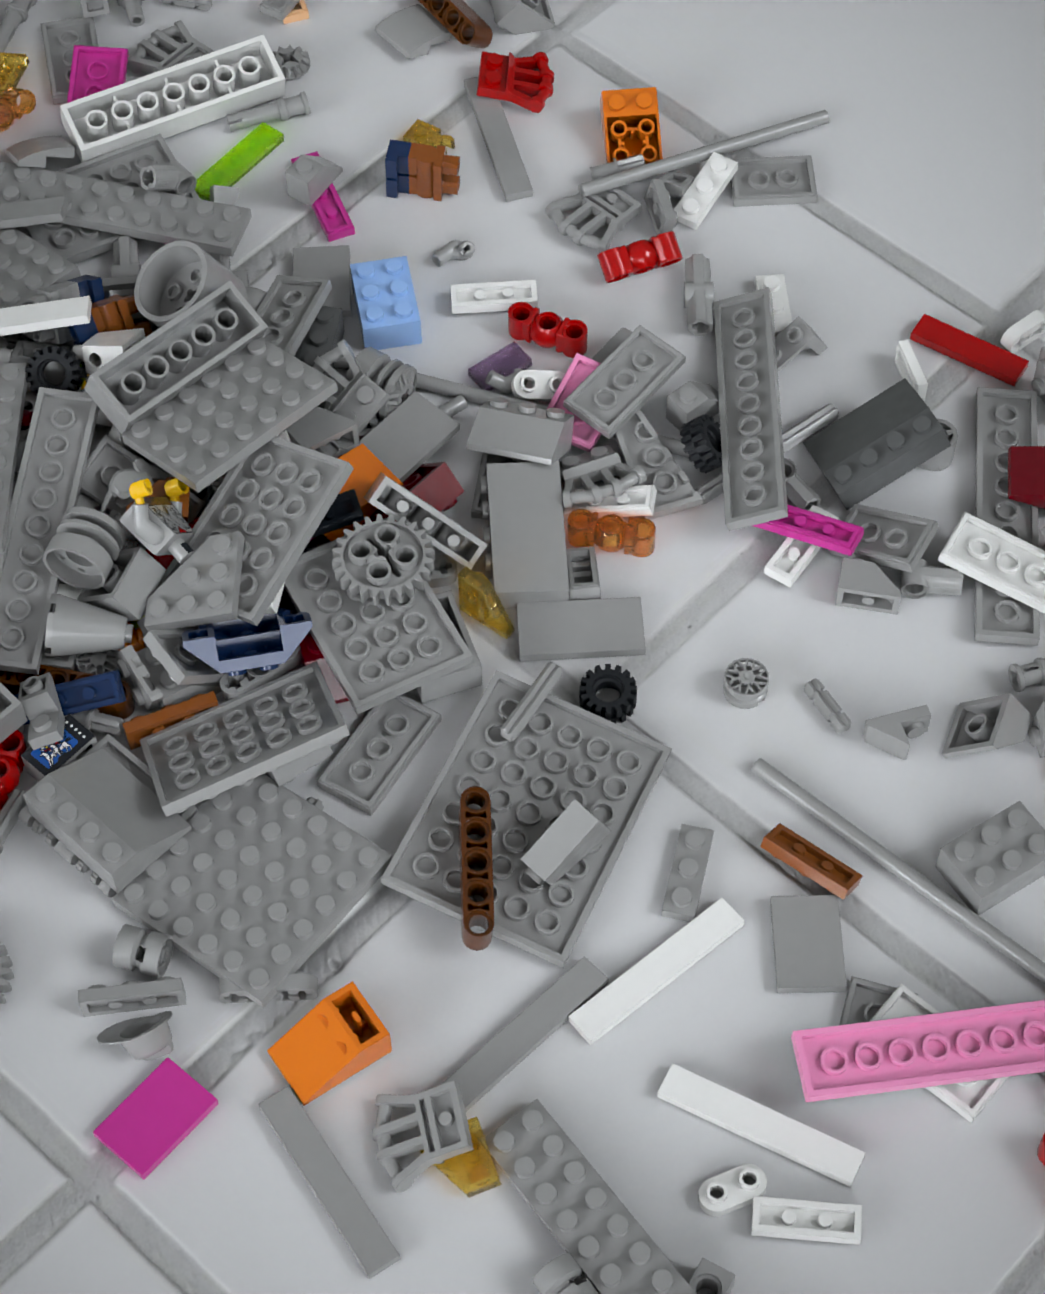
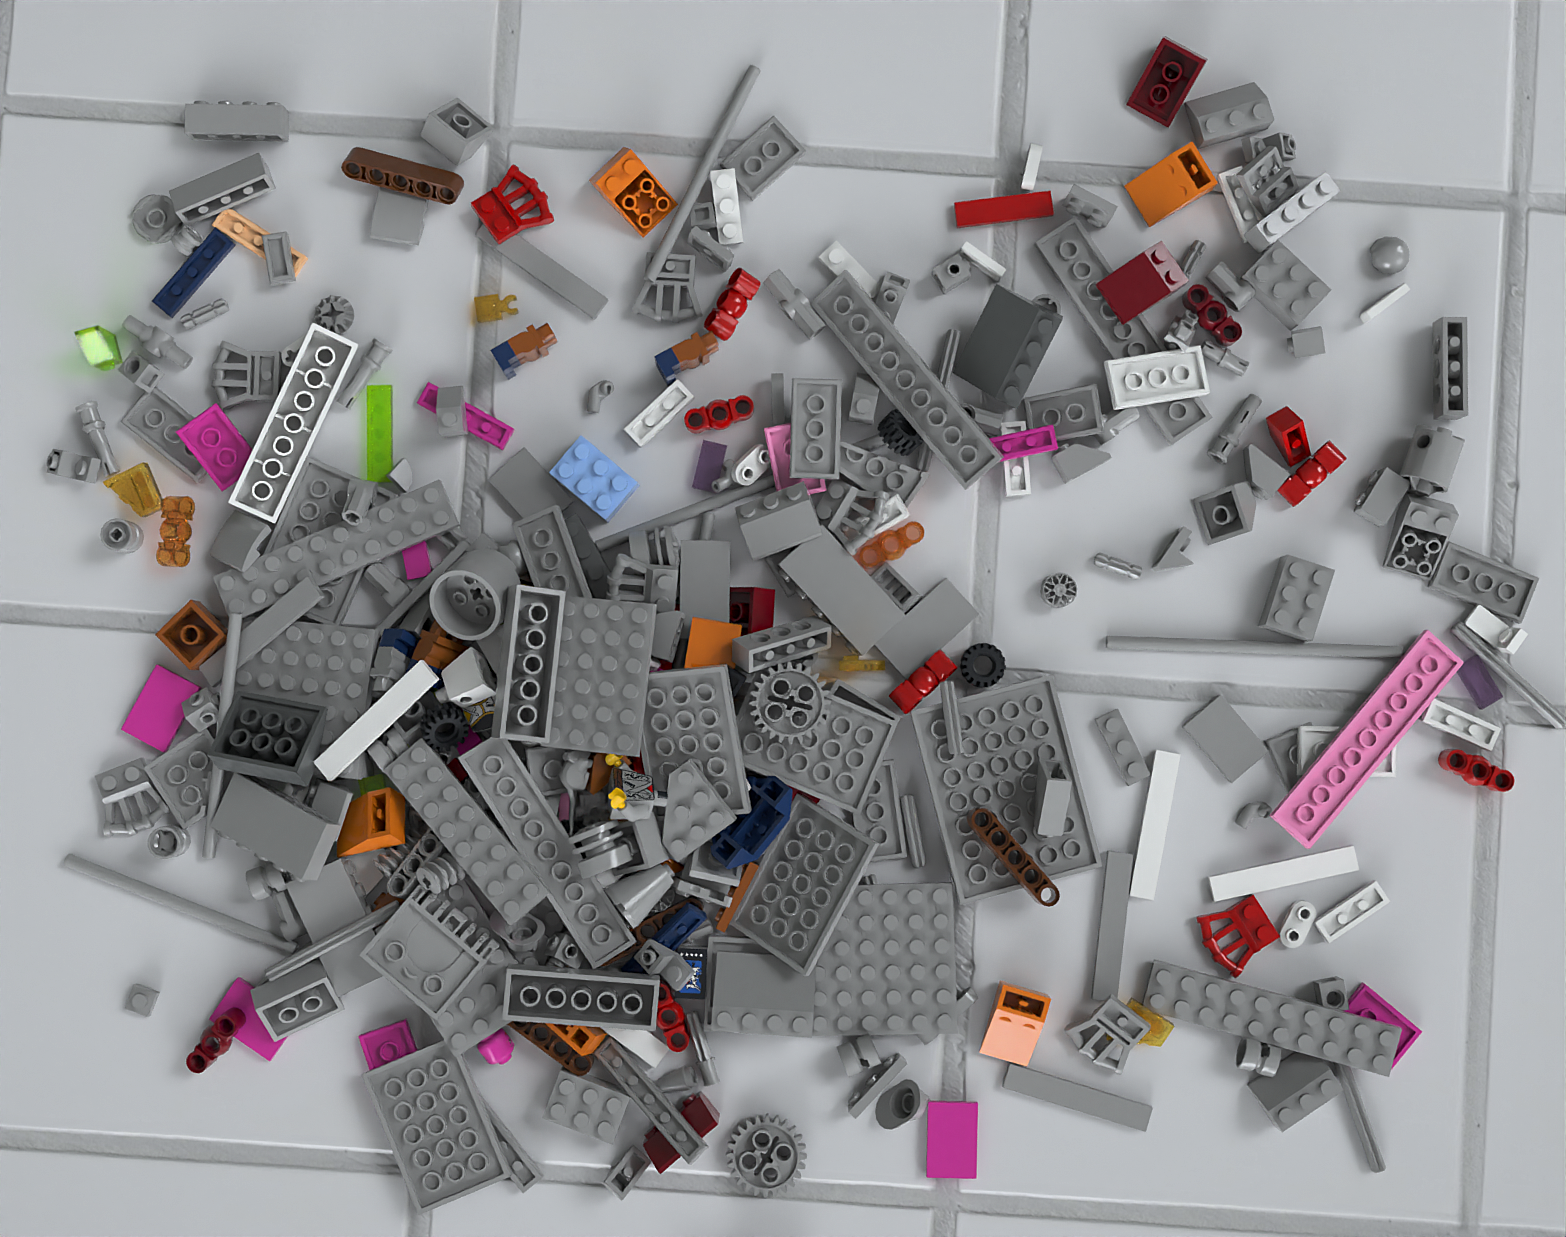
camera: 40 degrees left, 30 degrees up
(399, 792) = (912, 830): none -> light grey axle
(532, 659) = (923, 681): none -> red piece
(560, 262) = (686, 355): none -> dark orange hips
(617, 166) = (652, 235): light grey axle -> none
(679, 1148) = (1250, 923): none -> red plate
(775, 1034) = (1251, 811): none -> light grey arm
(811, 861) = (1190, 685): dark orange plate -> none
(872, 362) = (951, 273): none -> light grey brick

